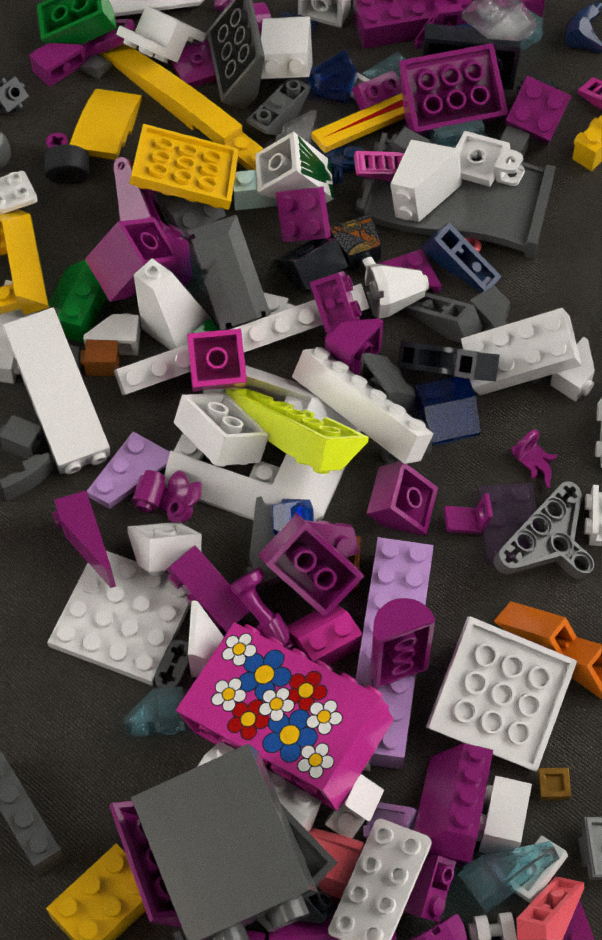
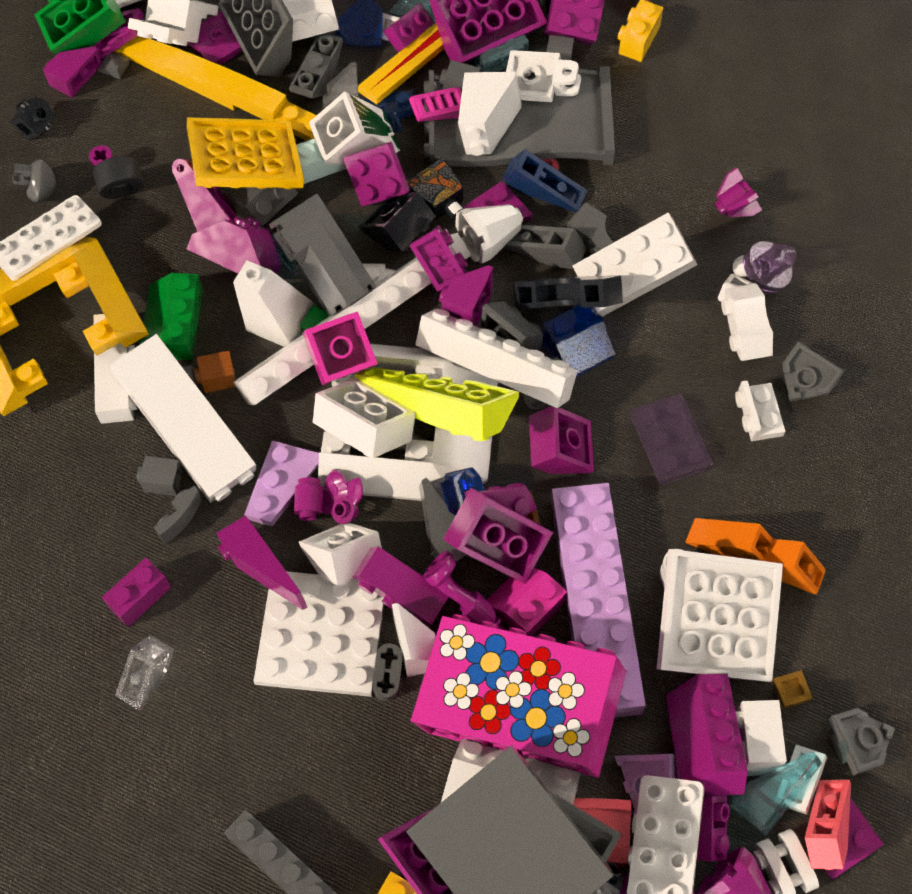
camera: 15 degrees left, 5 degrees up
(106, 123) = (144, 123): yellow slope -> none
(118, 327) = (225, 337): white slope -> none
(126, 251) = (216, 261): magenta slope -> none
(156, 713) = (388, 723): clear light blue slope -> none
(357, 807) = (616, 765): white slope -> none
(400, 641) = (617, 594): magenta brick -> none
(468, 519) = (631, 445): magenta bracket -> none
(533, 456) = (674, 367): magenta piece -> none
(541, 545) = (718, 433): dark grey beam -> none
(579, 379) = (695, 279): white slope -> none

